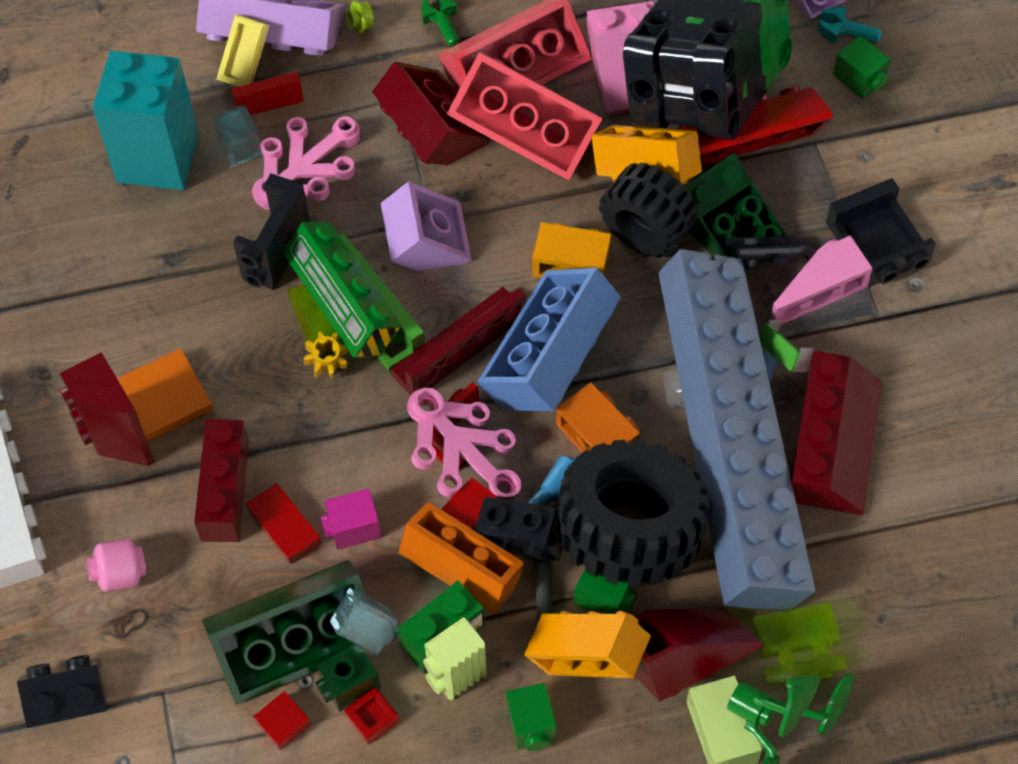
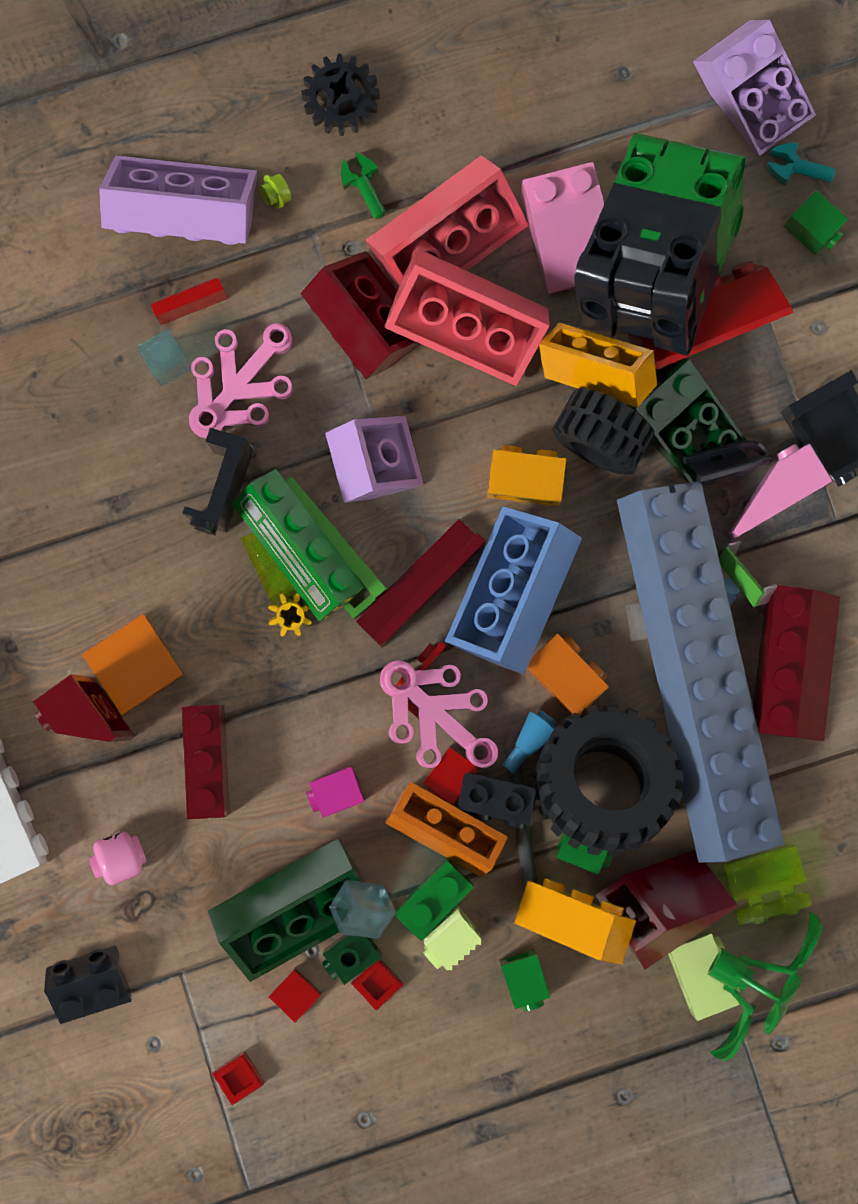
camera: 10 degrees left, 25 degrees up
(146, 119) = (67, 365): teal brick -> none
(242, 51) = (156, 251): light yellow tile -> none
(283, 523) = (270, 795): red tile -> none

